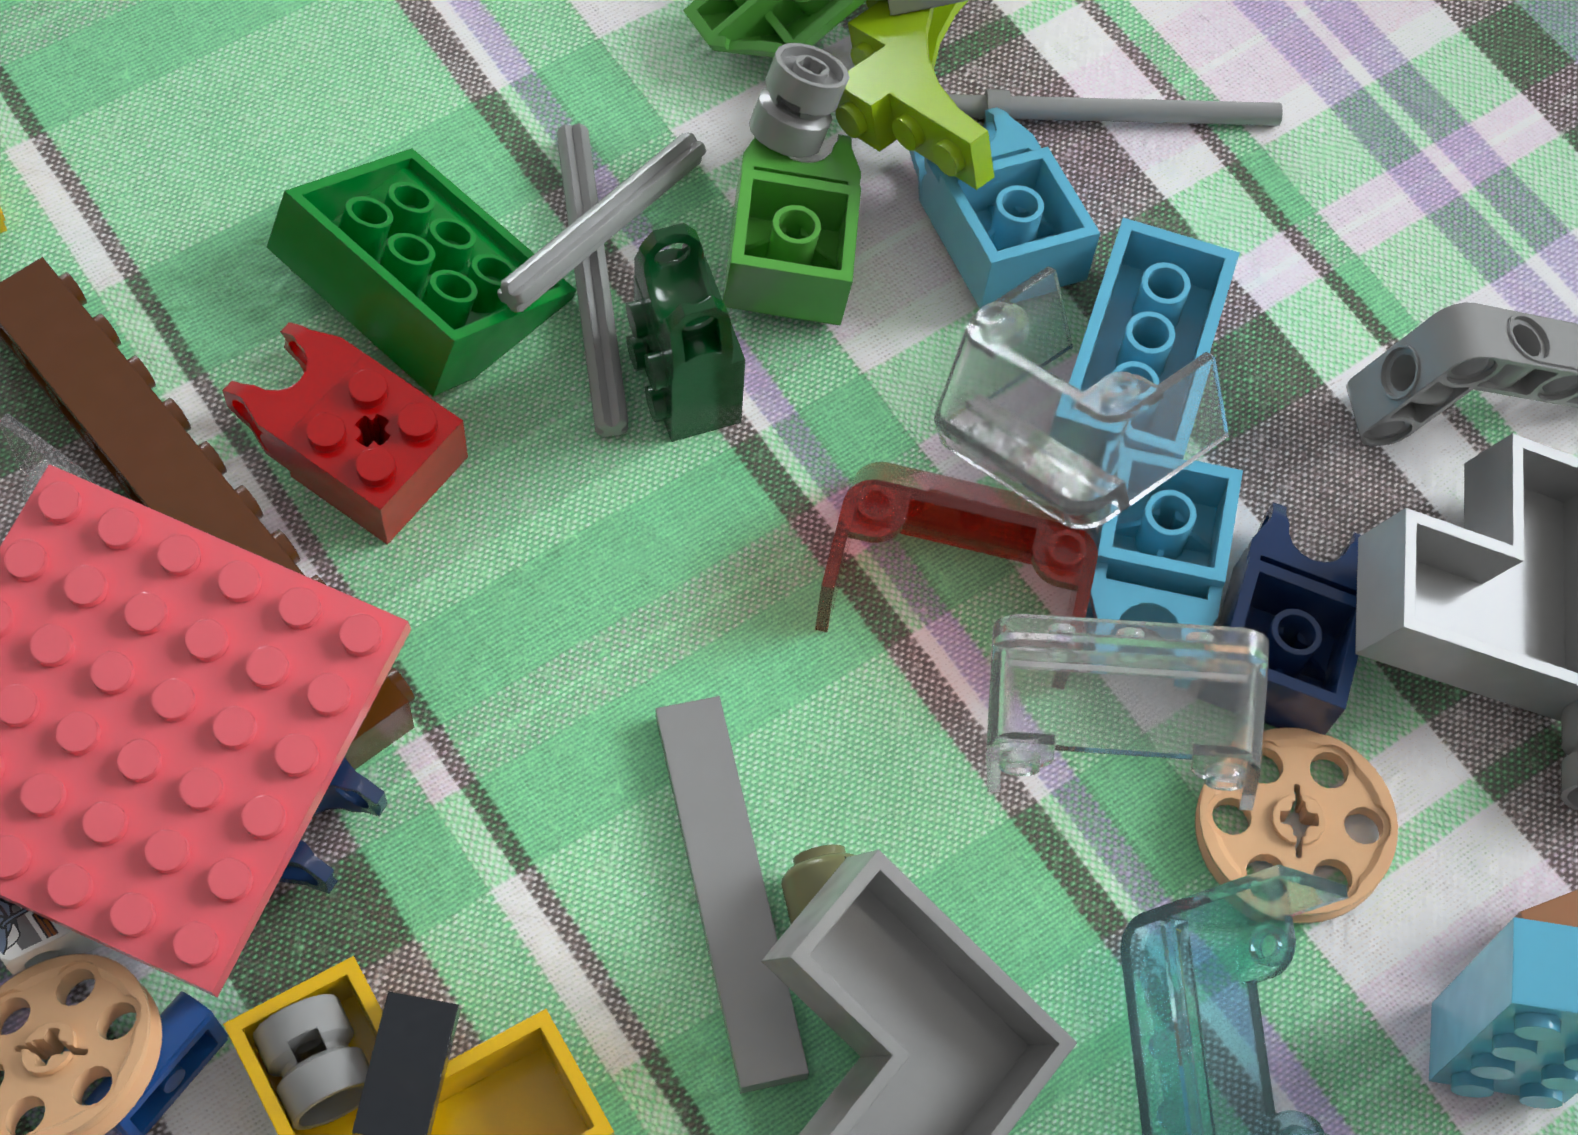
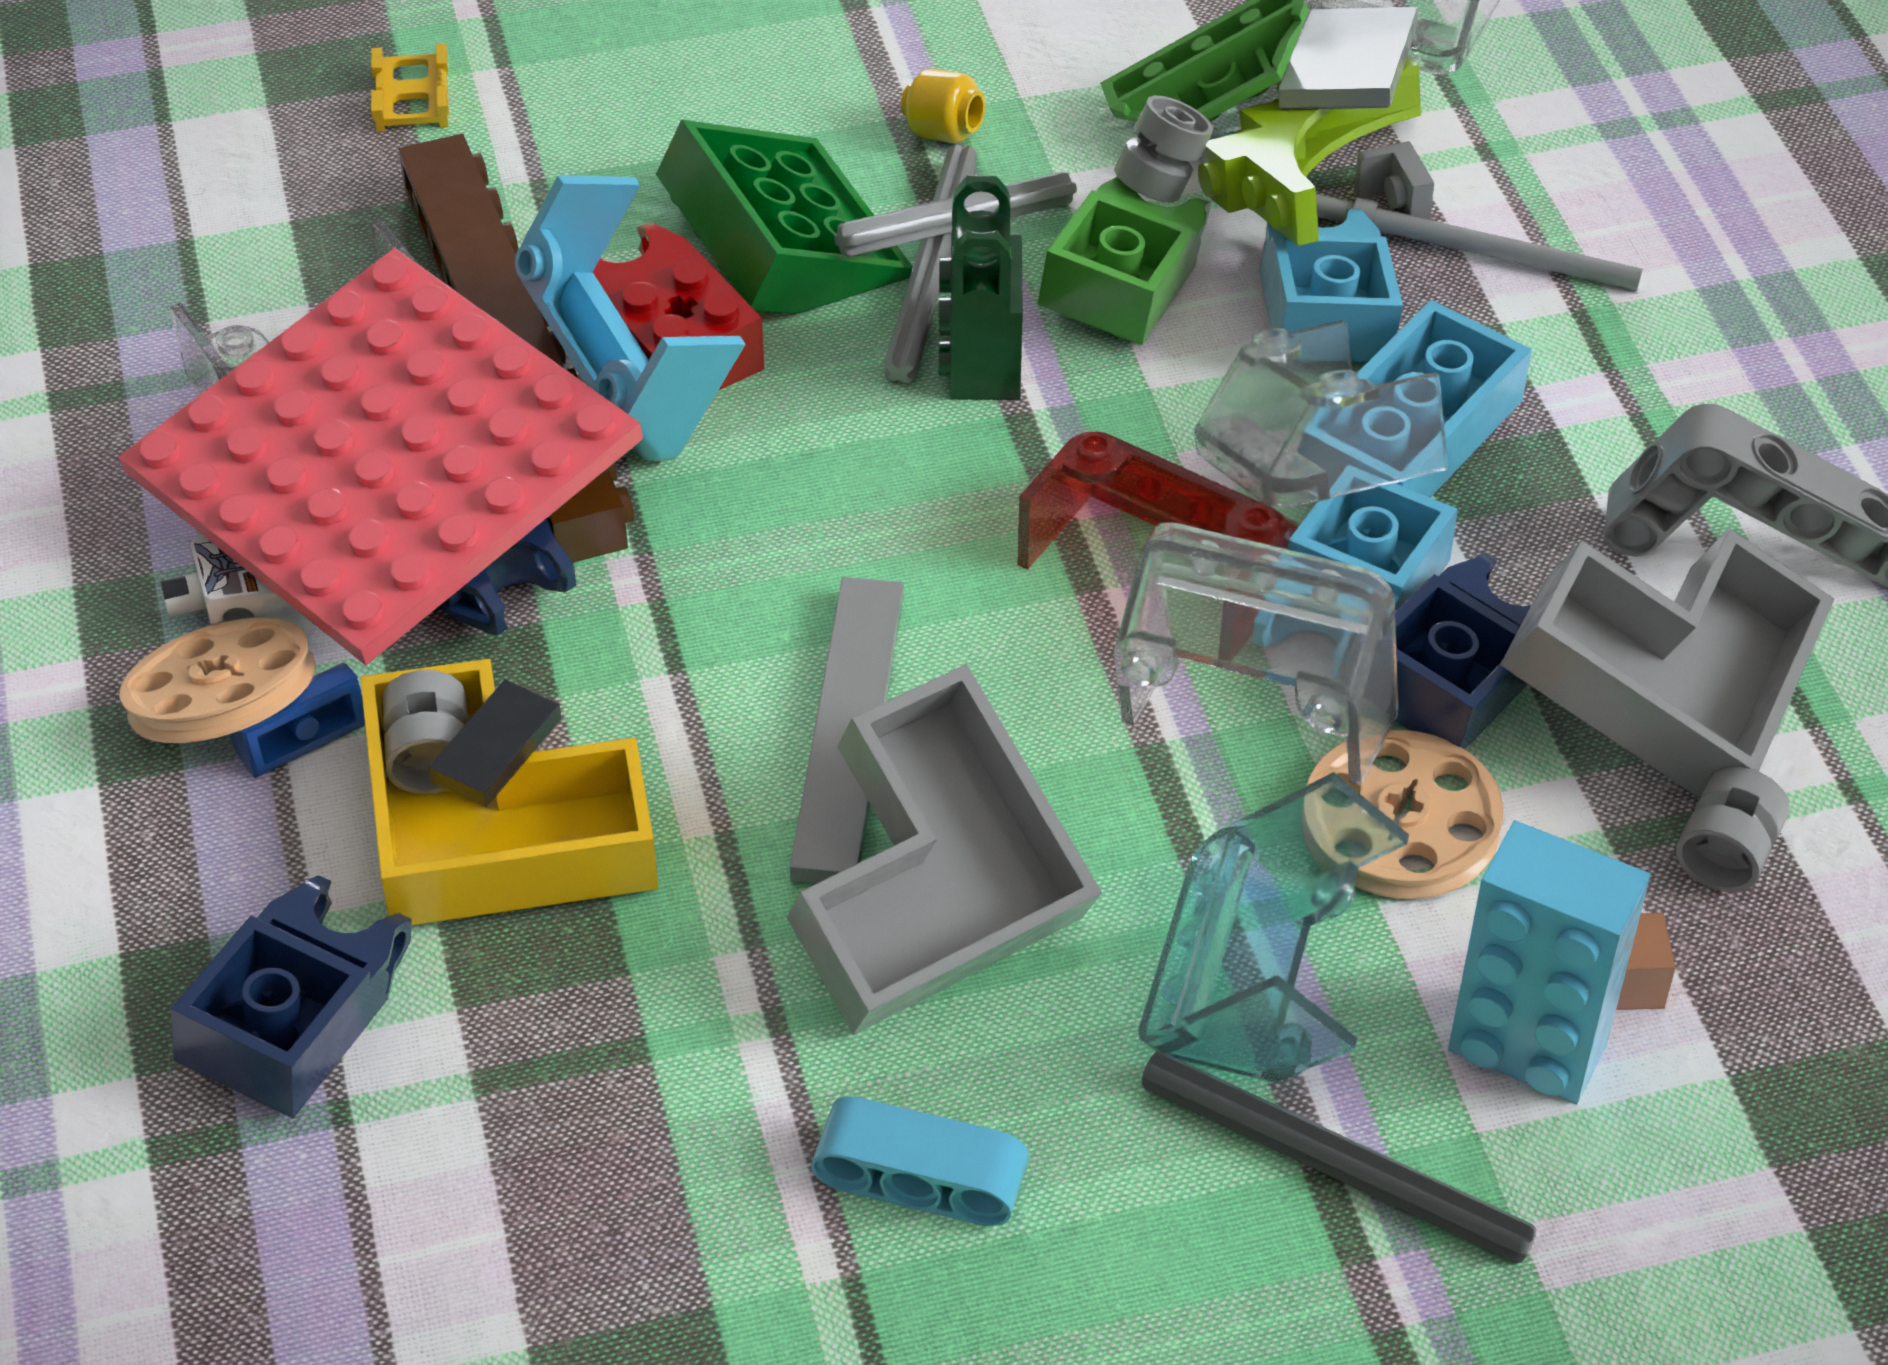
camera: 25 degrees right, 15 degrees down
(304, 501) = (557, 270): none -> medium azure windscreen
(533, 80) = (943, 105): none -> yellow head
(1024, 55) = (1398, 175): none -> light grey bracket

